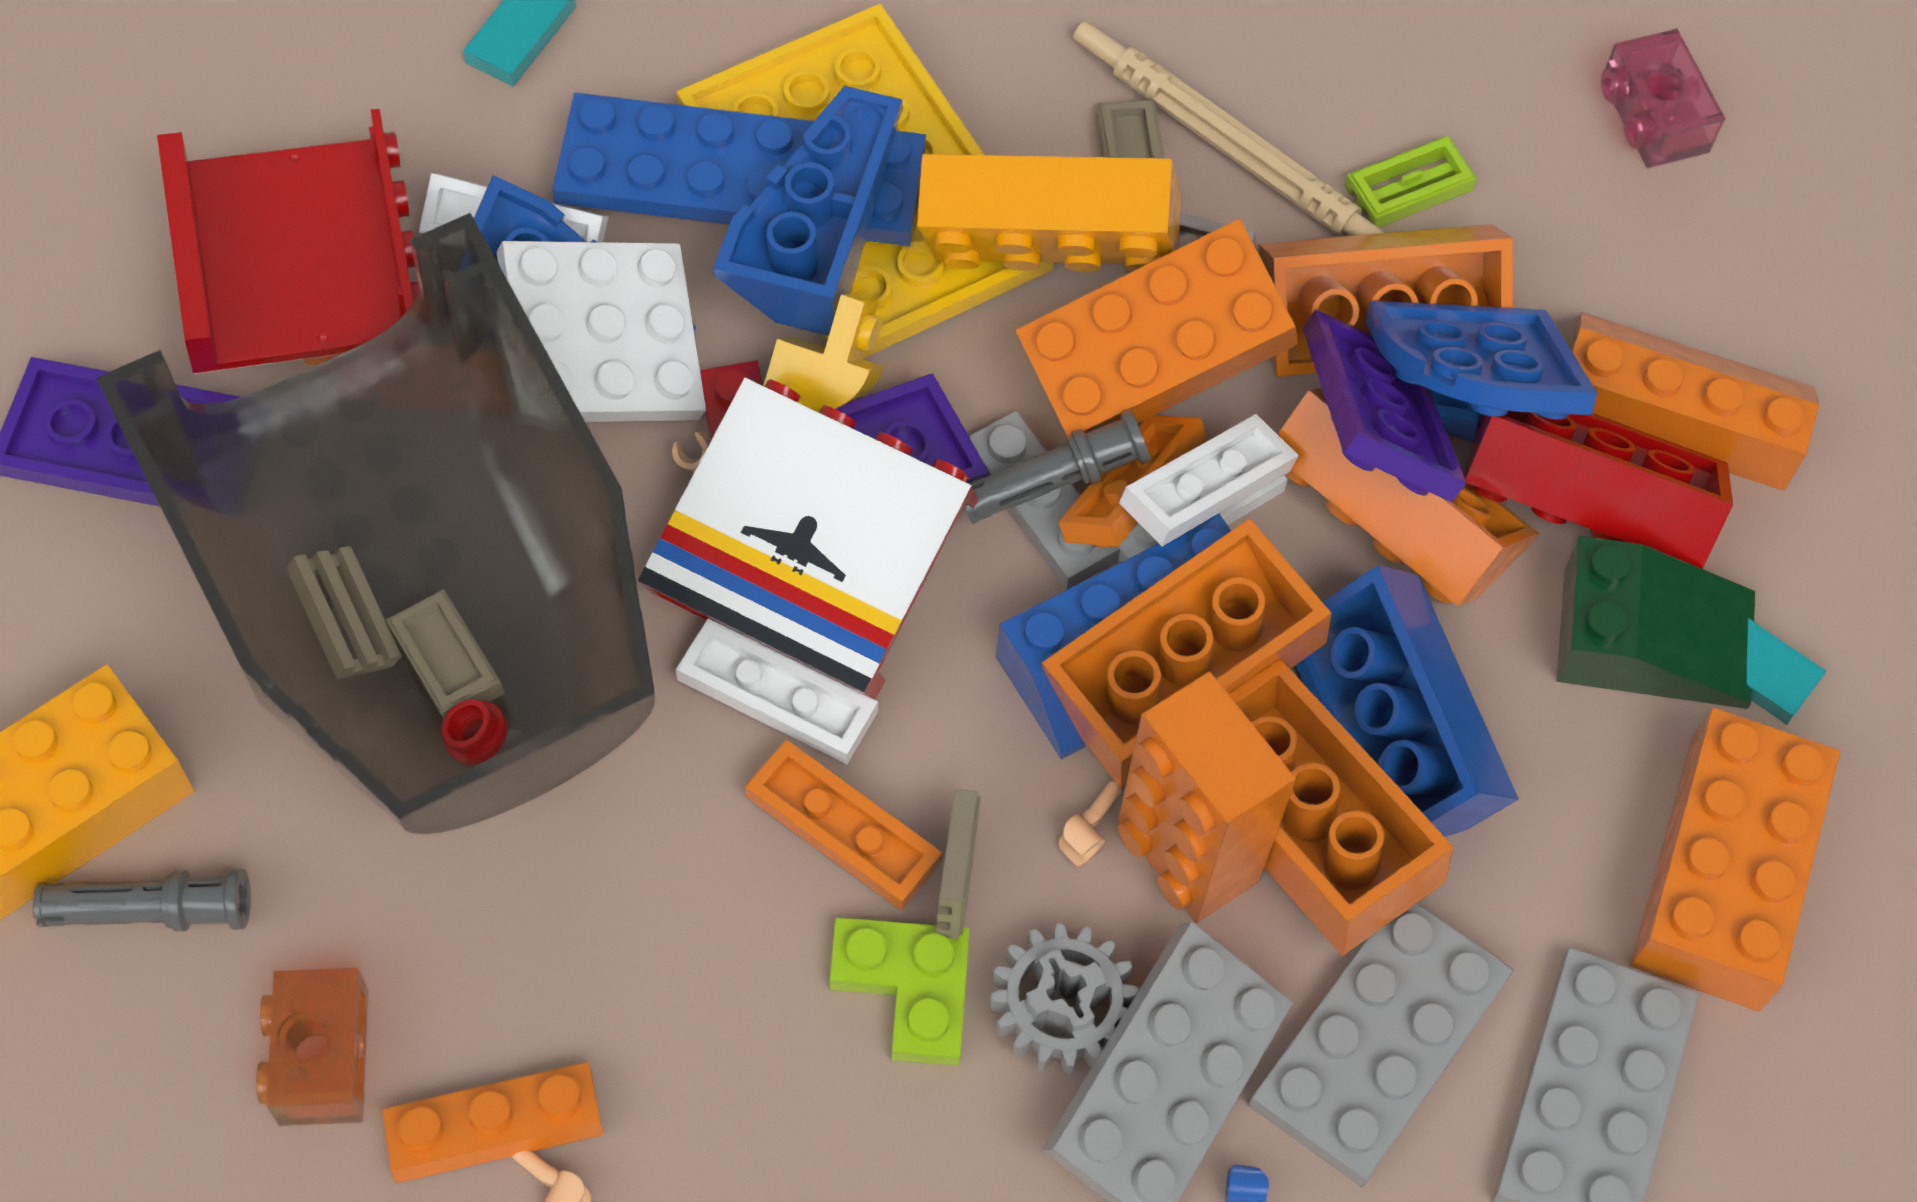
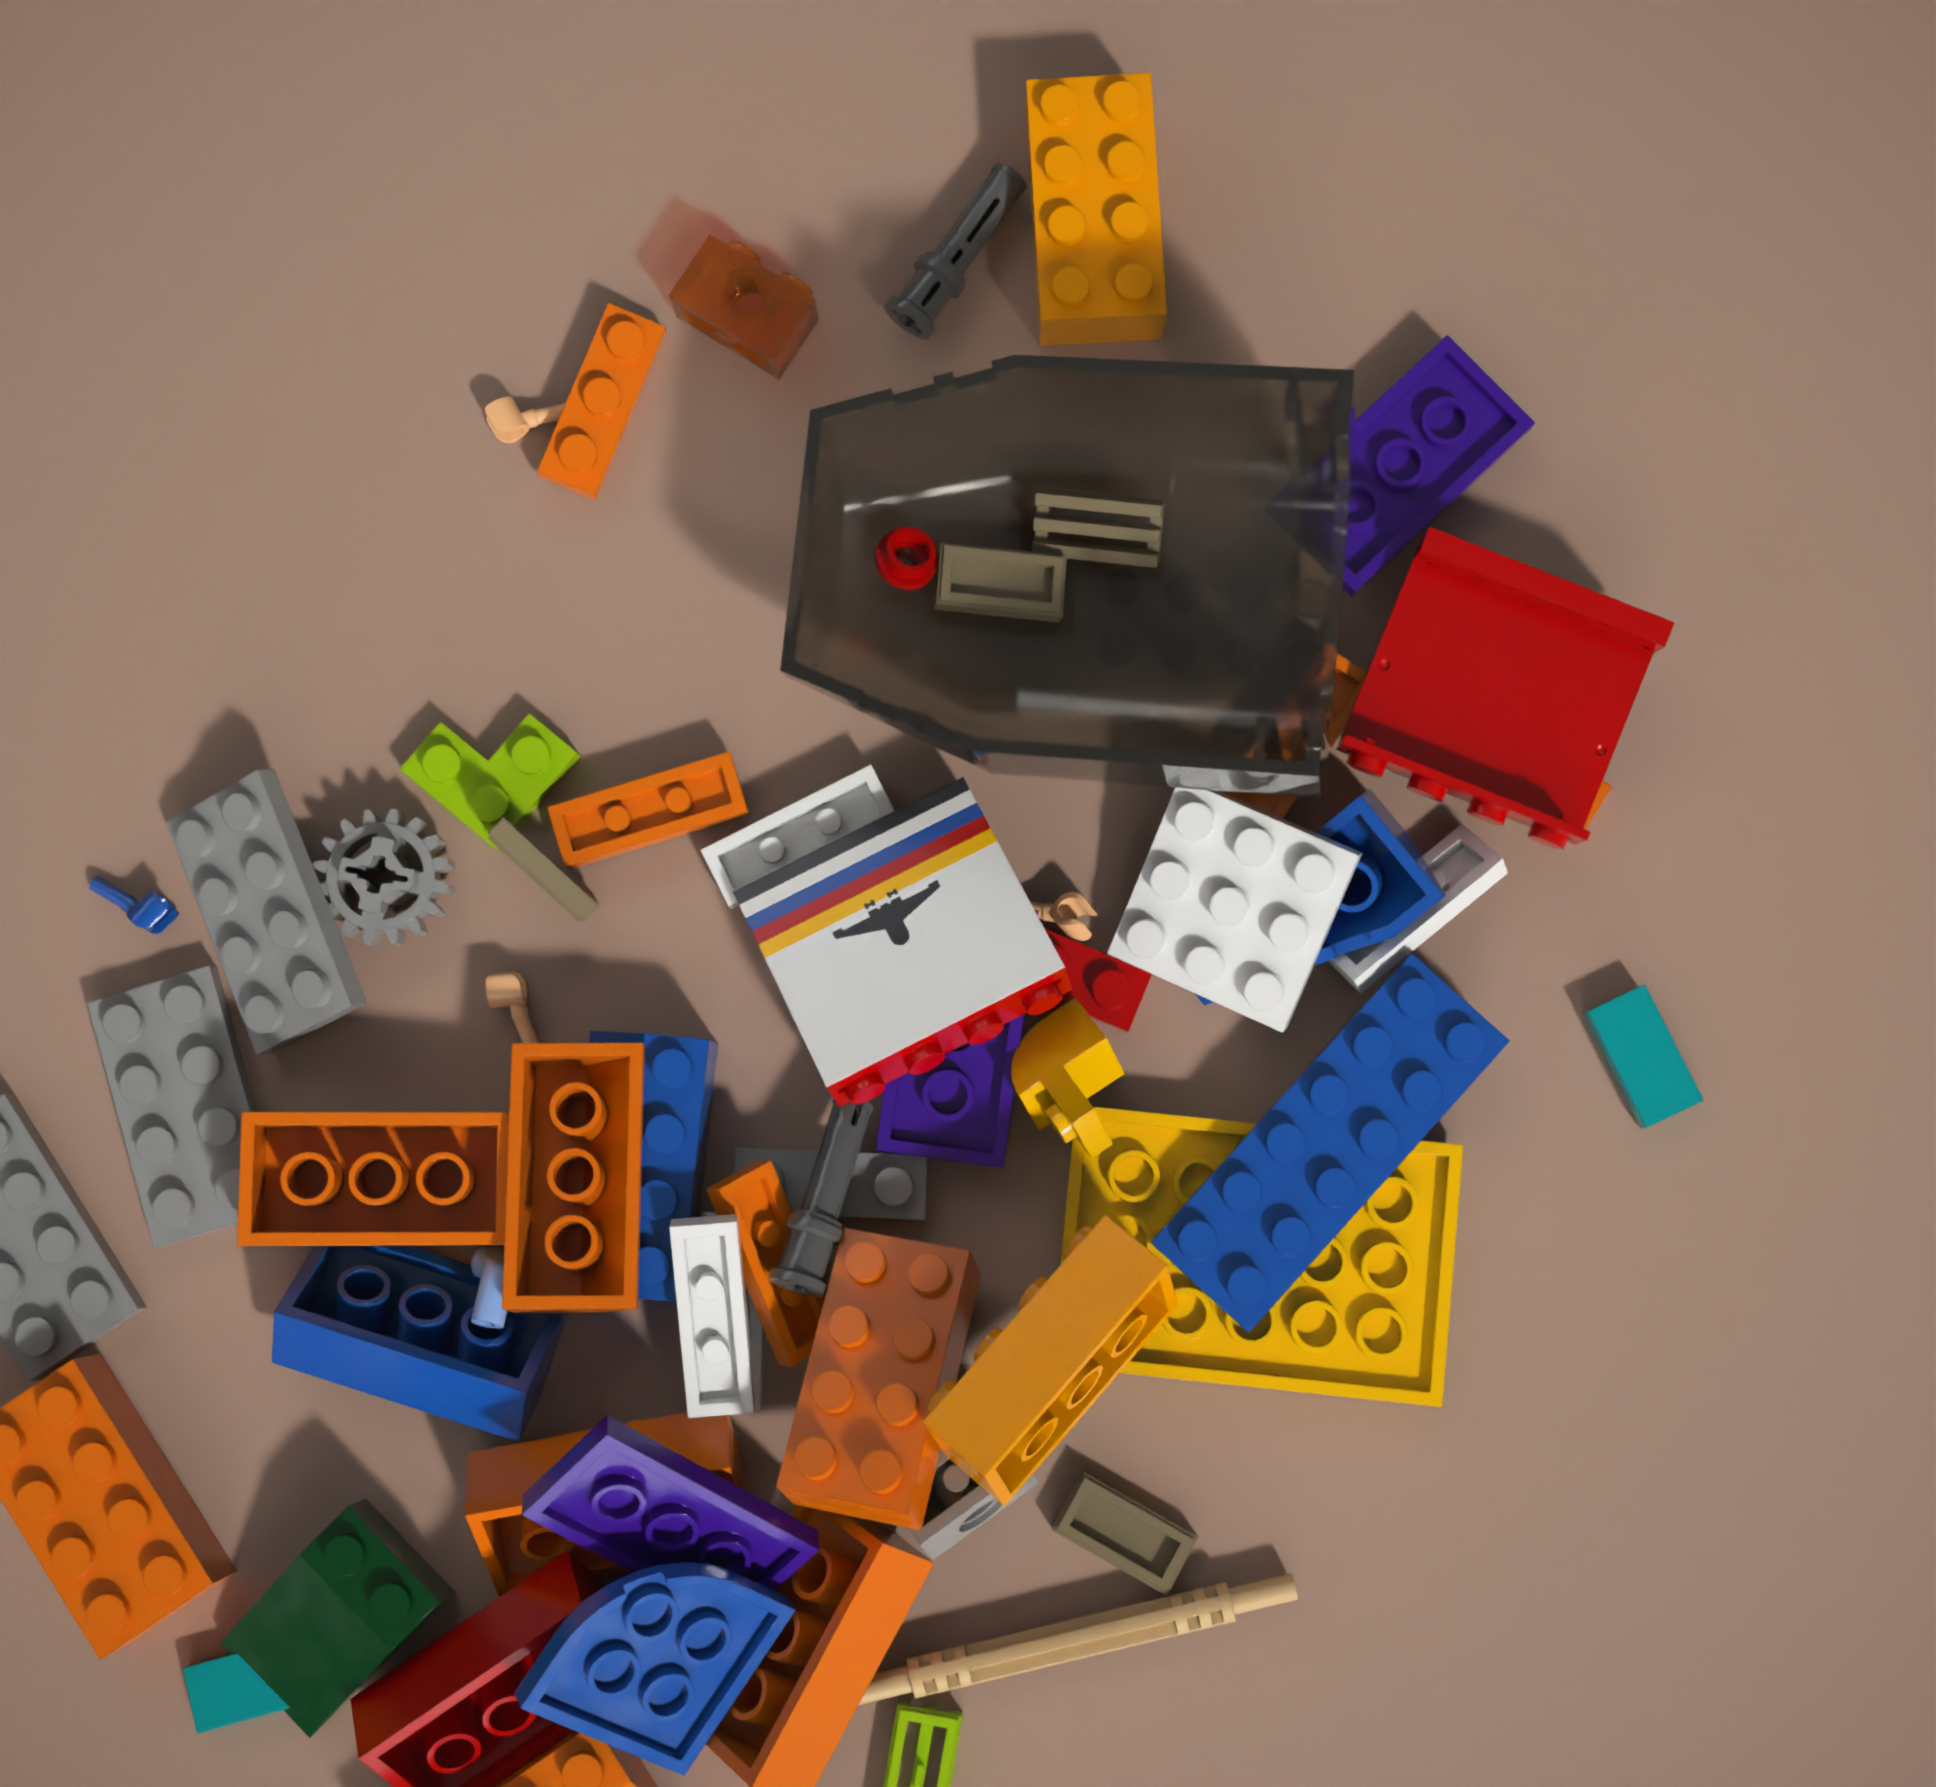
camera: 135 degrees right, 20 degrees up
(809, 224) = (1203, 1142): blue wedge -> none
(1203, 797) = (408, 1062): orange brick -> none
(1324, 660) = (488, 1265): none -> light blue arm

